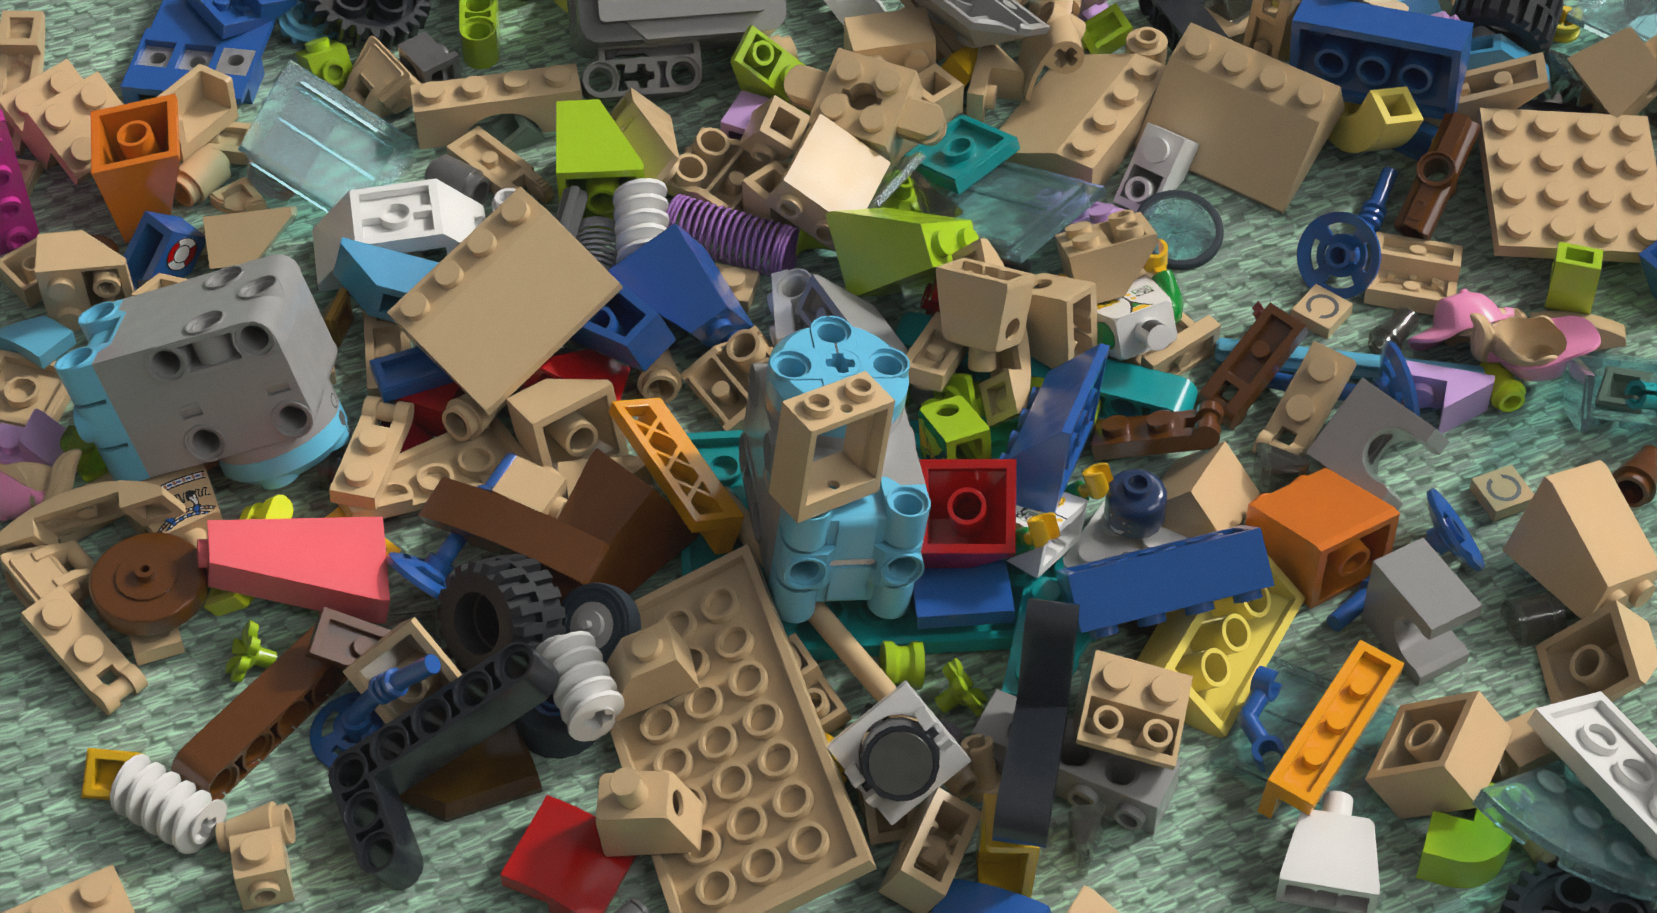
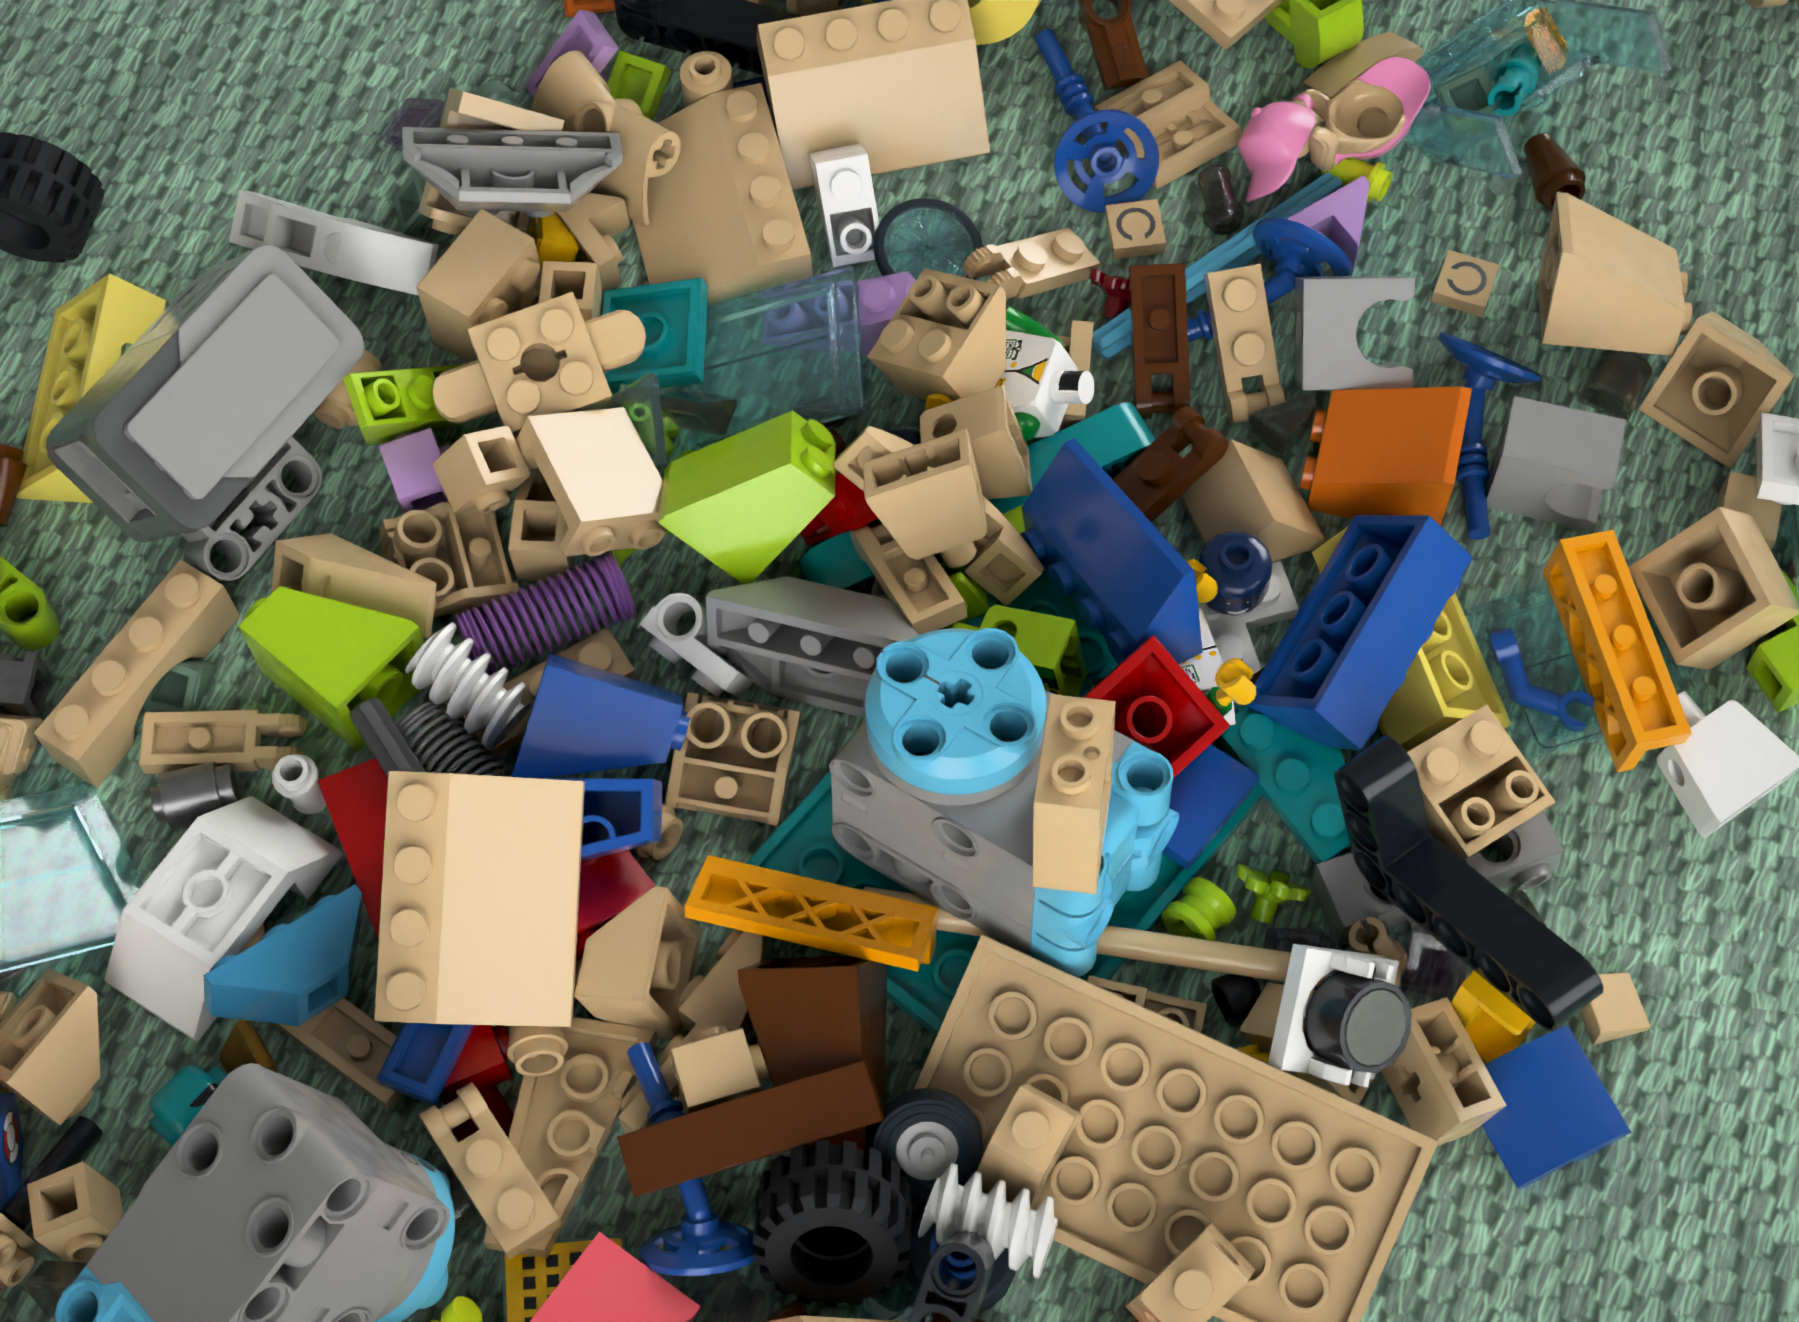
camera: 45 degrees left, 15 degrees up
(1220, 271) = (1033, 263): none -> tan hinge

